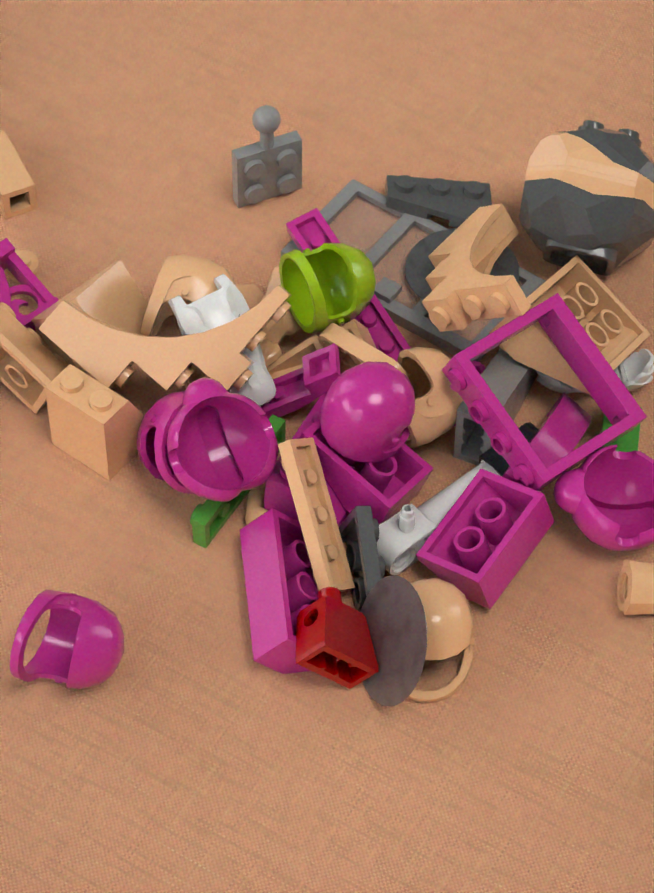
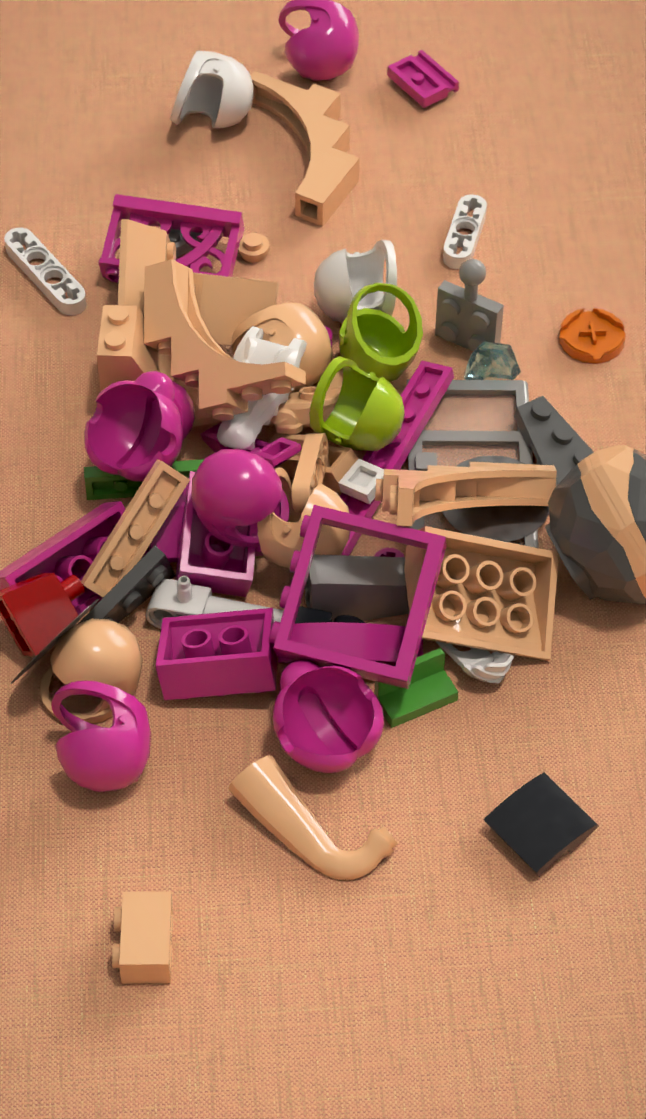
camera: 55 degrees right, 0 degrees up
(148, 132) = (462, 221): none -> white beam
(154, 225) = (345, 274): none -> white piece
(243, 244) = (379, 340): none -> lime piece
(317, 183) = (492, 360): none -> clear light blue plate
(338, 112) = (592, 336): none -> orange tile
(390, 333) = (361, 481): none -> white plate
(529, 673) = (98, 755): none -> dark pink piece

